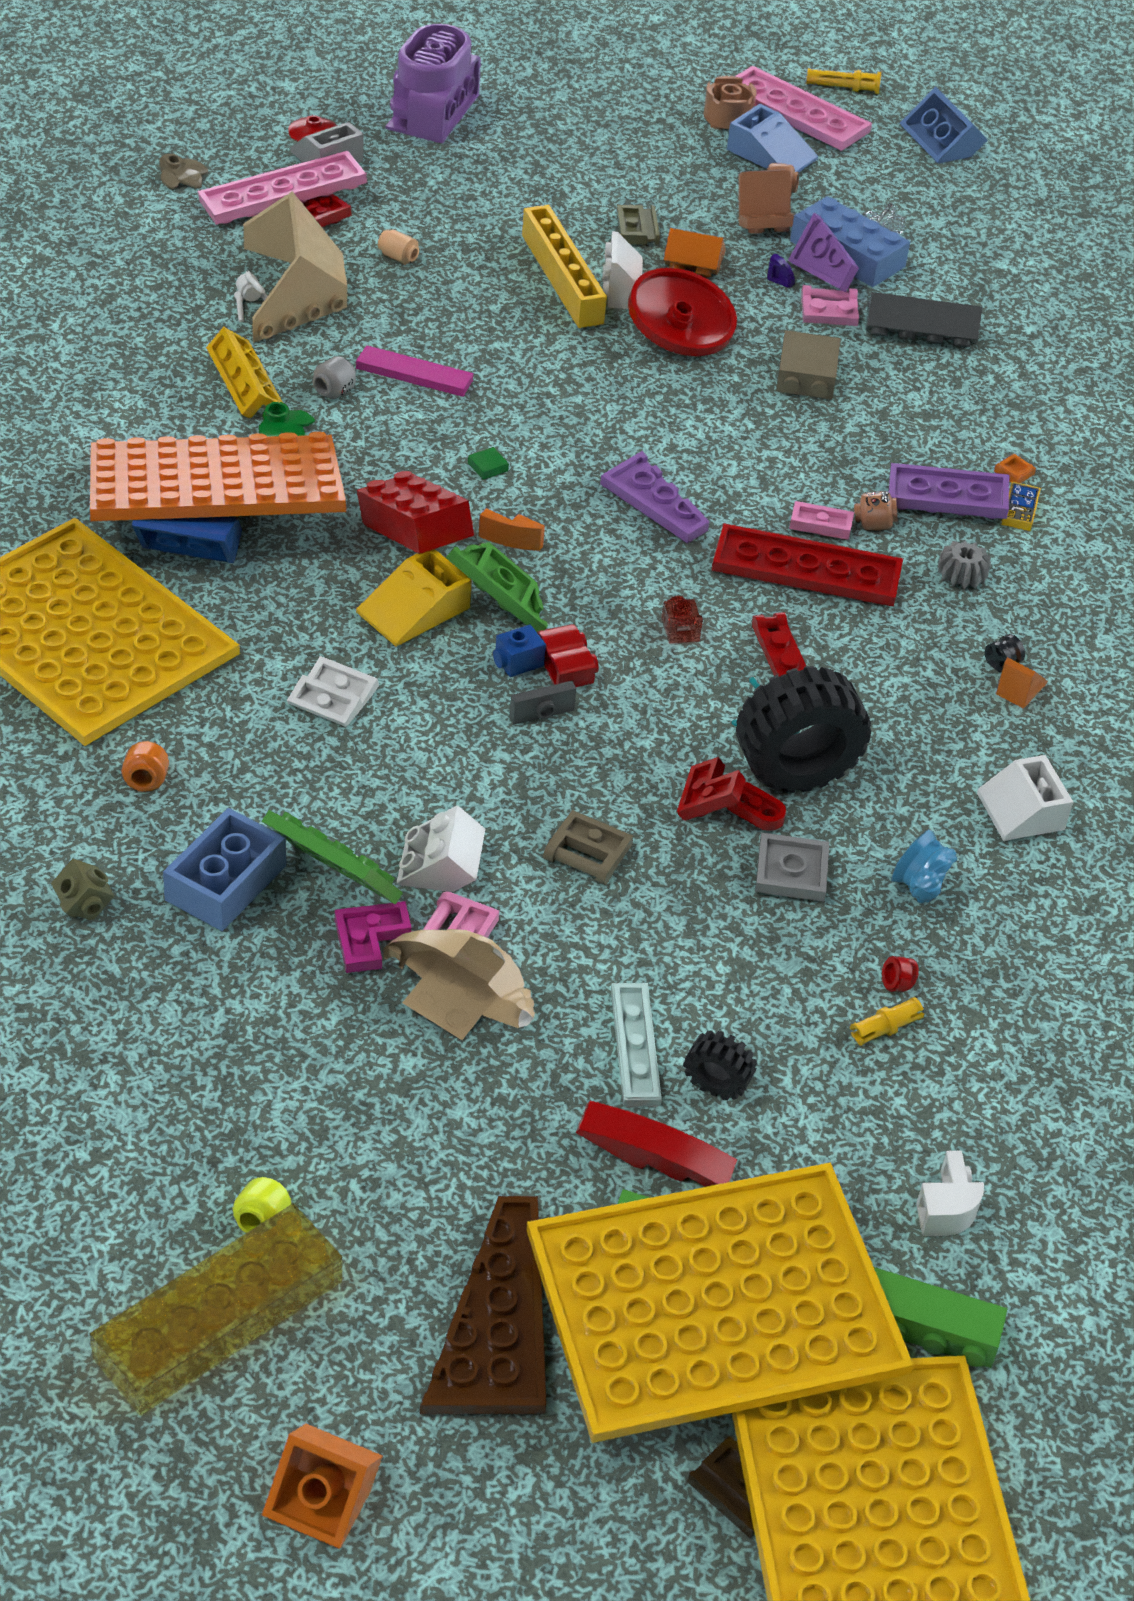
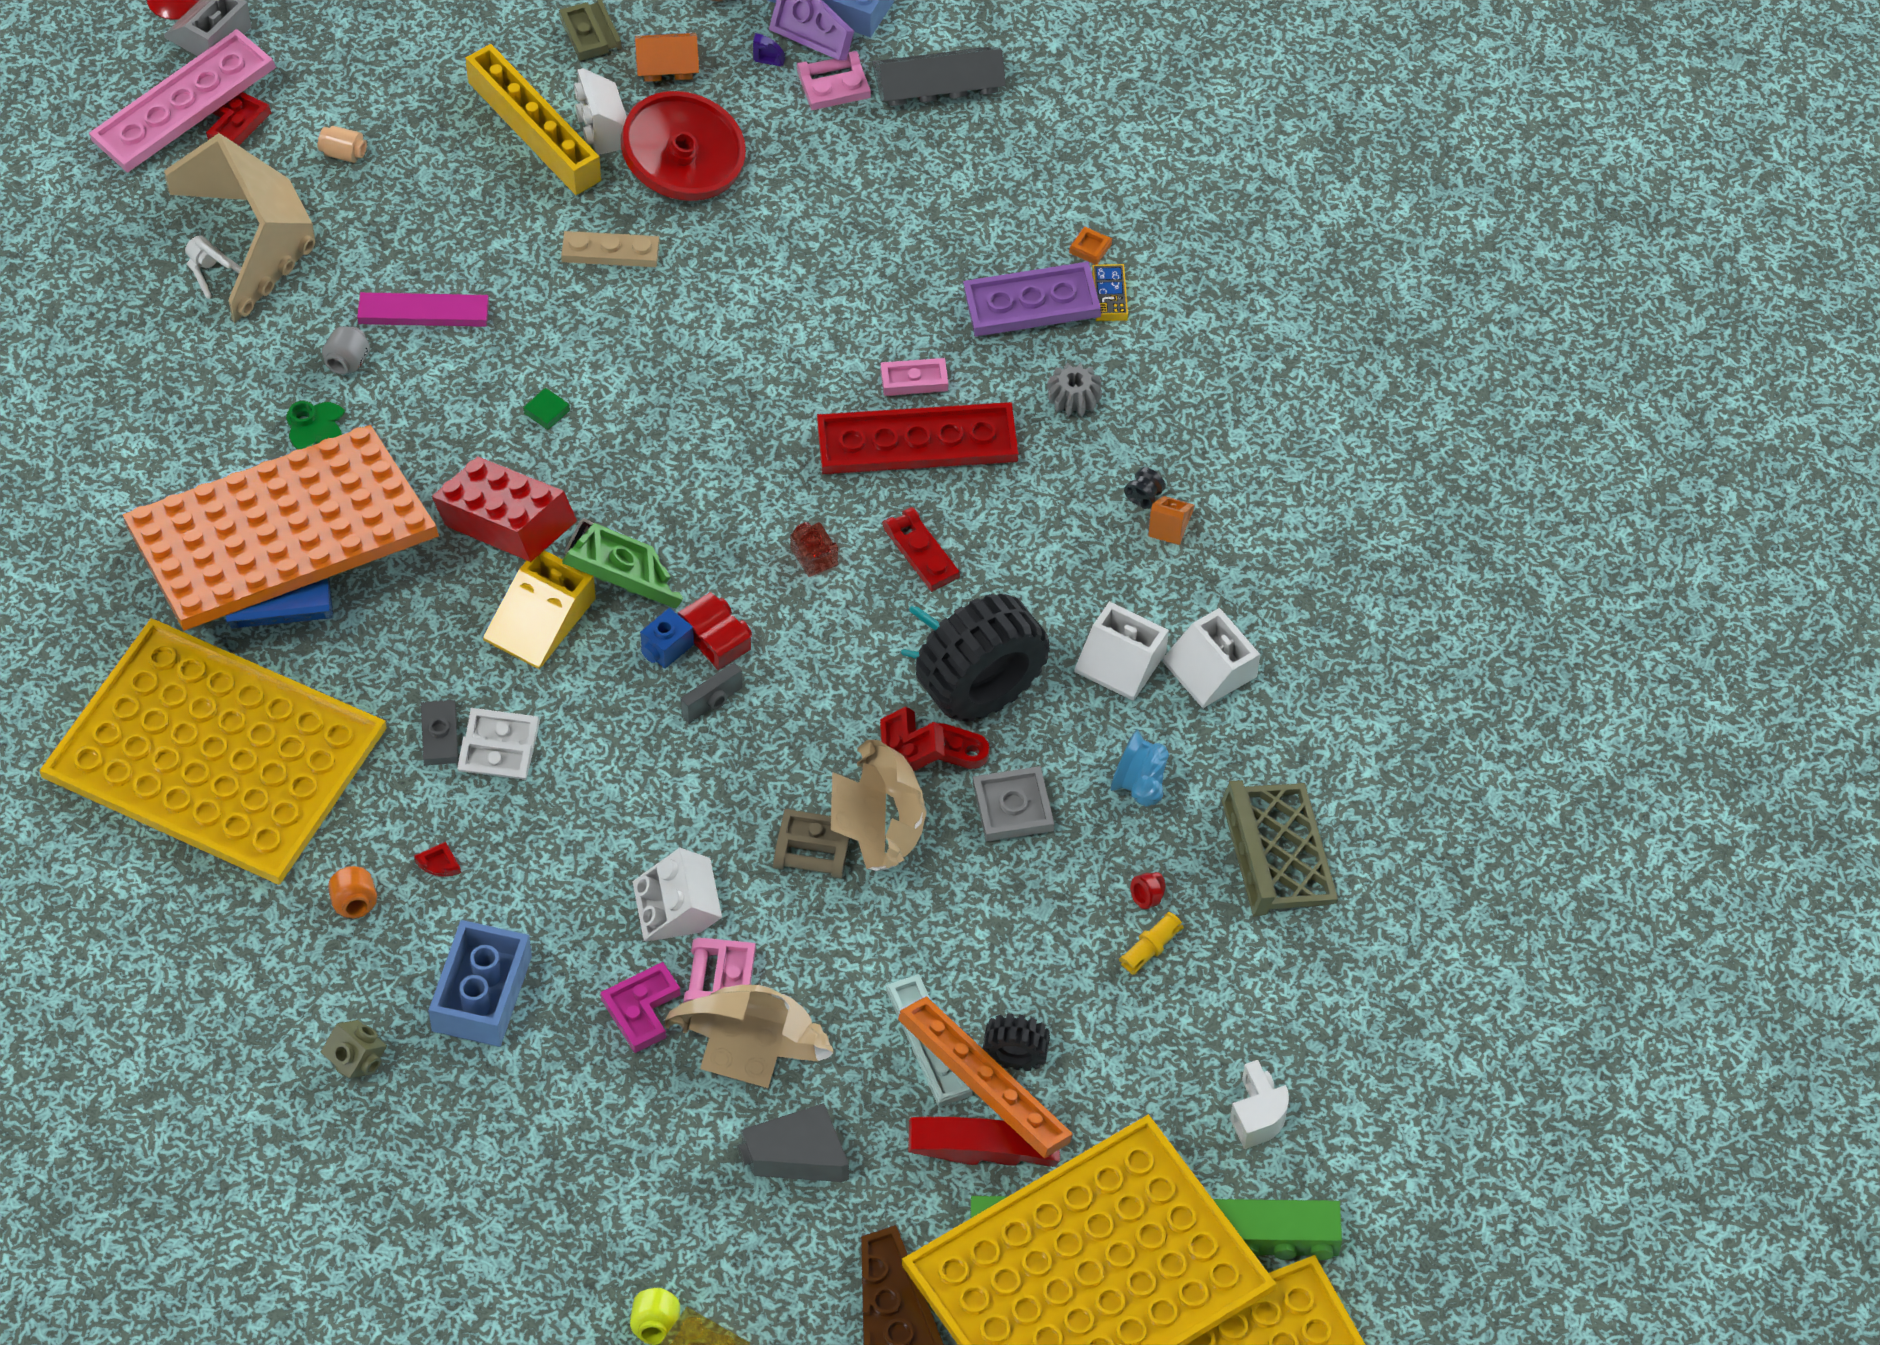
camera: 15 degrees left, 10 degrees up
(178, 170) = (59, 106): dark tan plate -> none
(237, 766) = (438, 860): none -> red tile
(242, 372) = (243, 371): yellow fence -> none
(284, 669) = (439, 732): none -> dark grey plate
(334, 855) = (580, 938): bright green plate -> none
(465, 1097) = (795, 1147): none -> dark grey slope
(515, 533) = (613, 493): orange slope -> none
(592, 369) = (610, 249): none -> tan plate
(648, 830) = (860, 807): none -> tan animal
(649, 493) = (728, 397): medium lavender wing -> none
(678, 1087) = (985, 1077): none -> orange plate
(808, 364) = (837, 174): dark tan brick -> none
(876, 511) = (966, 348): nougat head -> none
(941, 770) = (1122, 651): none -> white slope
(1017, 995) = (1251, 854): none -> olive fence

